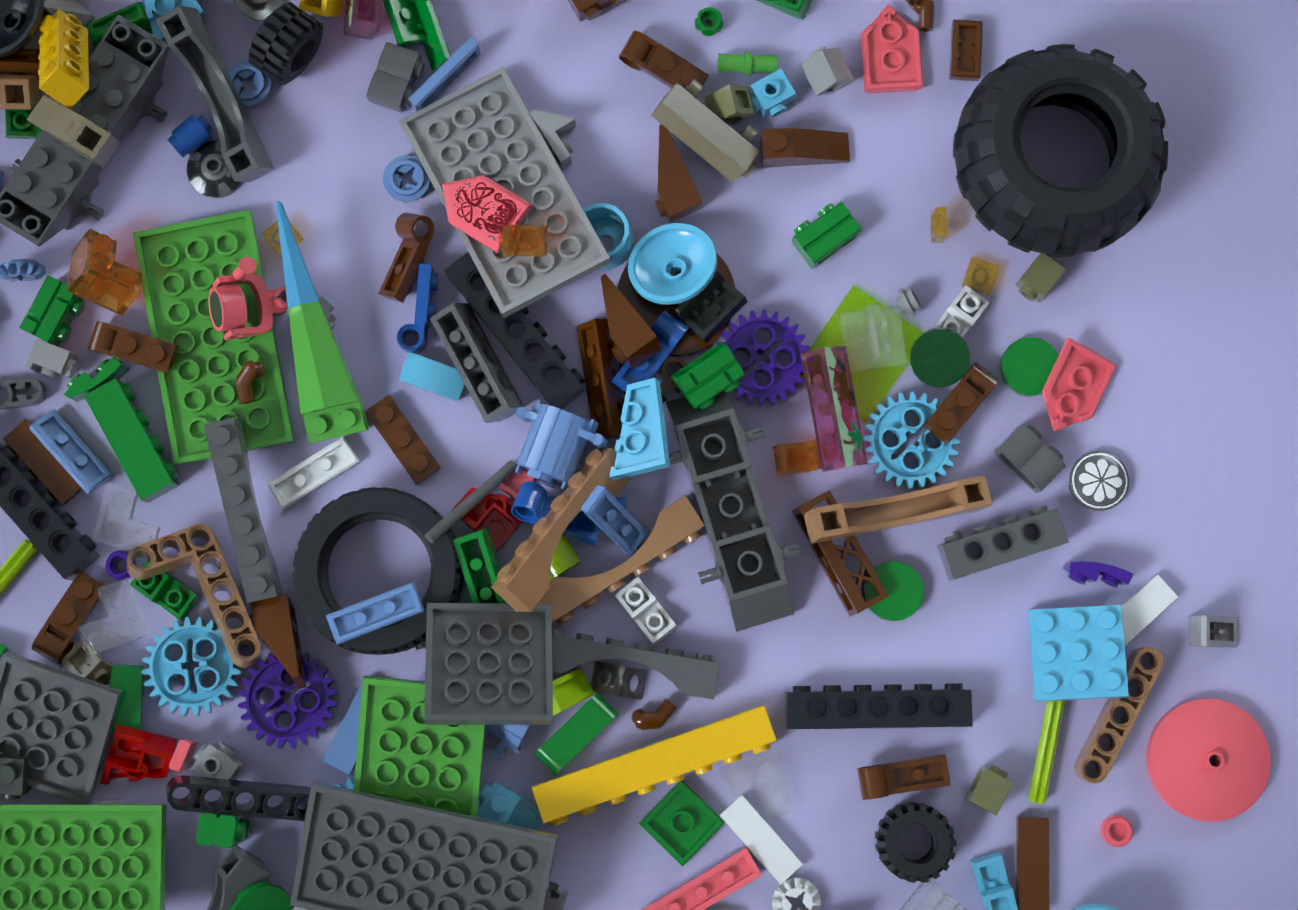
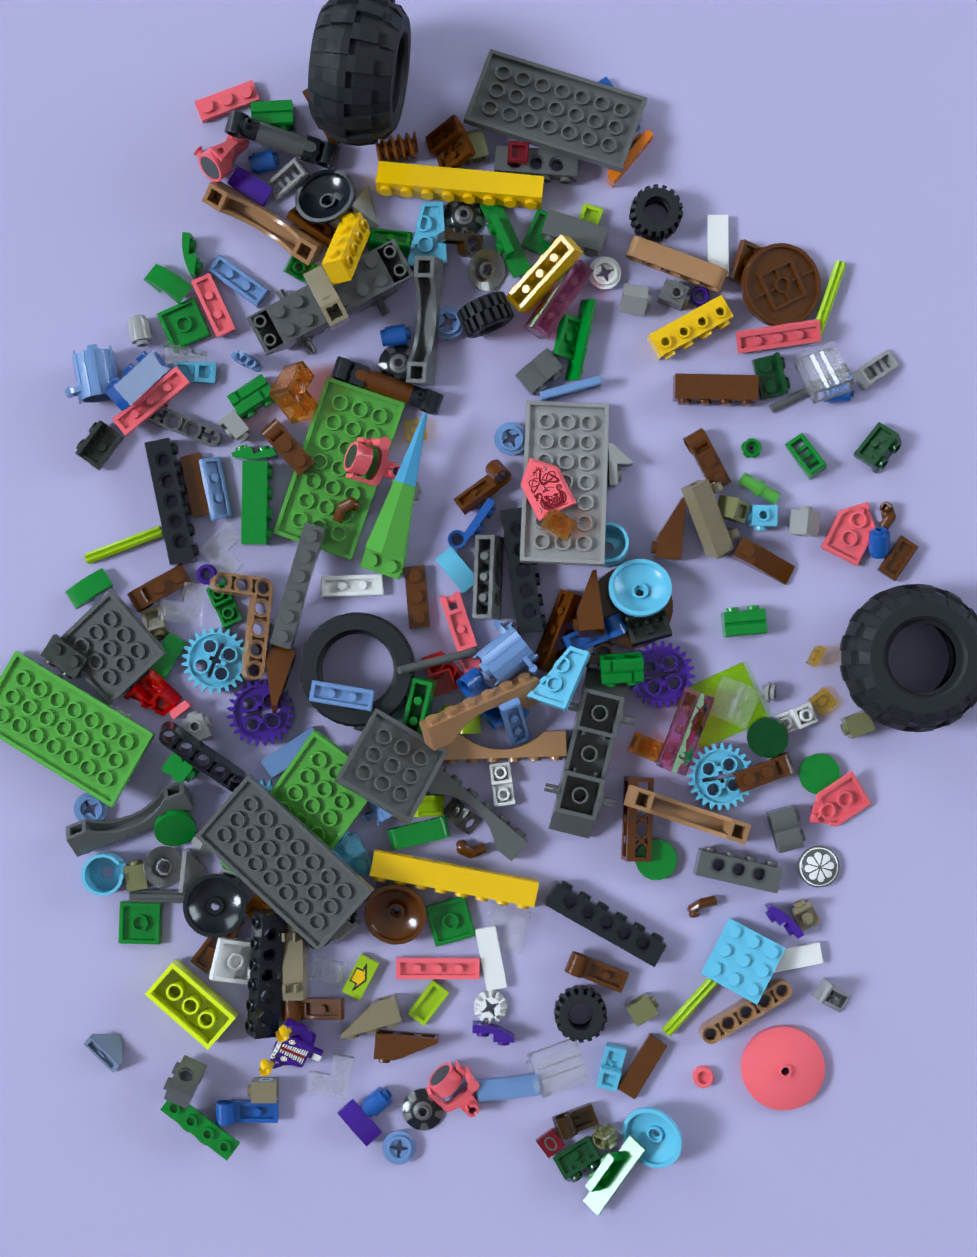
camera: 30 degrees right, 5 degrees up
(179, 207) = (366, 378): none -> piece
(473, 440) = (458, 622): none -> coral plate
(607, 873) = (392, 925): none -> reddish brown dish
(932, 43) = (879, 542): none -> blue brick
(982, 613) = (701, 903): none -> reddish brown arm
(1118, 549) = (804, 914): none -> dark tan bracket

